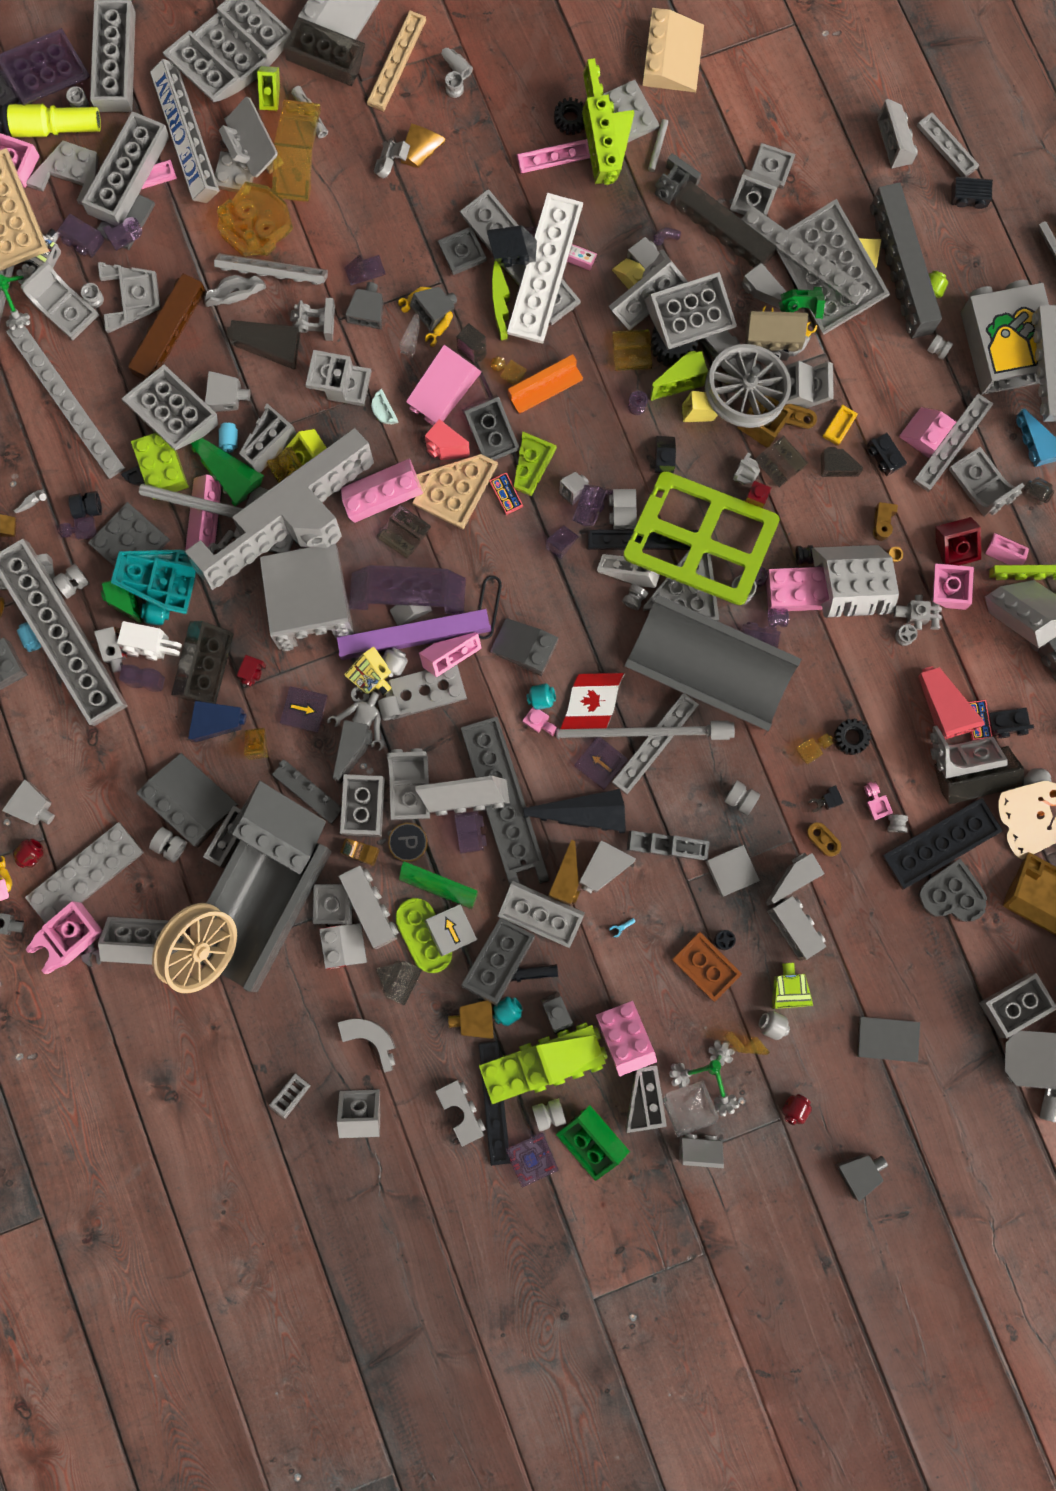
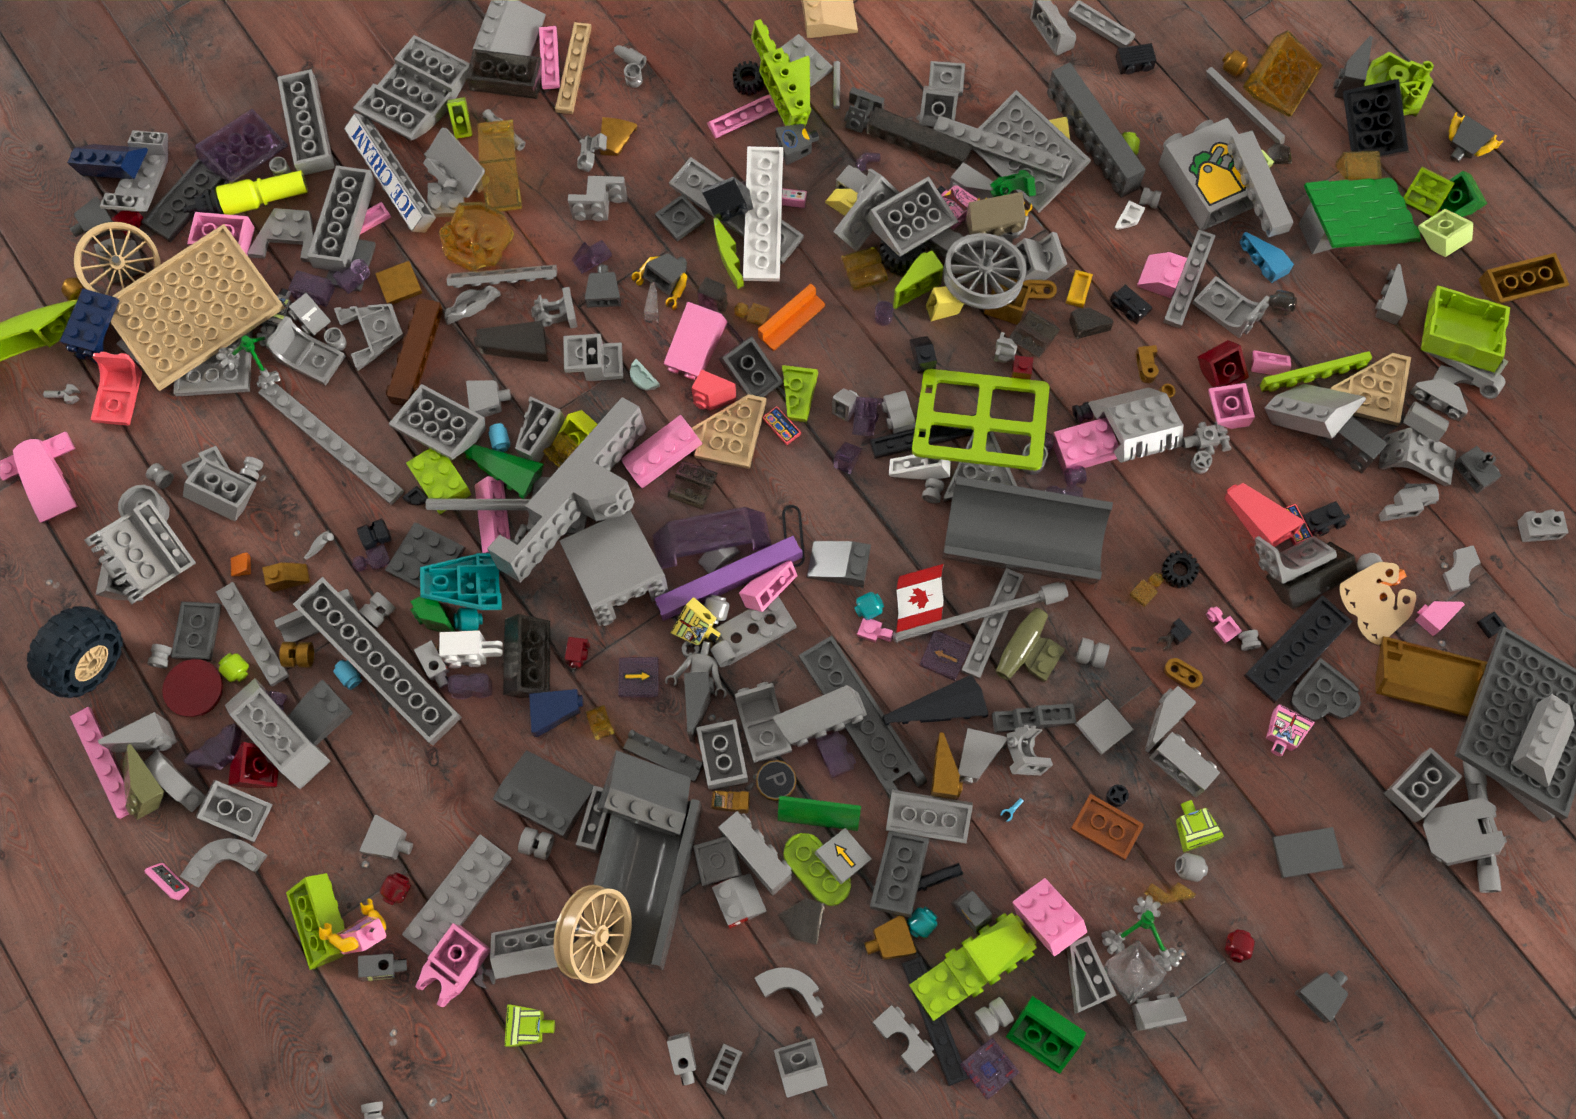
camera: 10 degrees left, 10 degrees down
(71, 263) = (308, 314): none -> light grey brick
(118, 1011) = (525, 1026): none -> lime torso
(168, 251) = (398, 283): none -> pearl gold tile
(253, 1068) = (681, 1047): none -> light grey torso
(374, 43) = (550, 57): none -> bright pink plate
(384, 211) = (596, 202): none -> light grey bracket
(599, 198) = (795, 141): none -> dark grey torso
(646, 874) = (1021, 749): none -> light grey tile
(683, 778) = (1030, 649): none -> olive plate
(742, 303) = (958, 202): none -> torso
(906, 919) = (1287, 730): none -> torso
(914, 361) = (1130, 216): none -> white slope

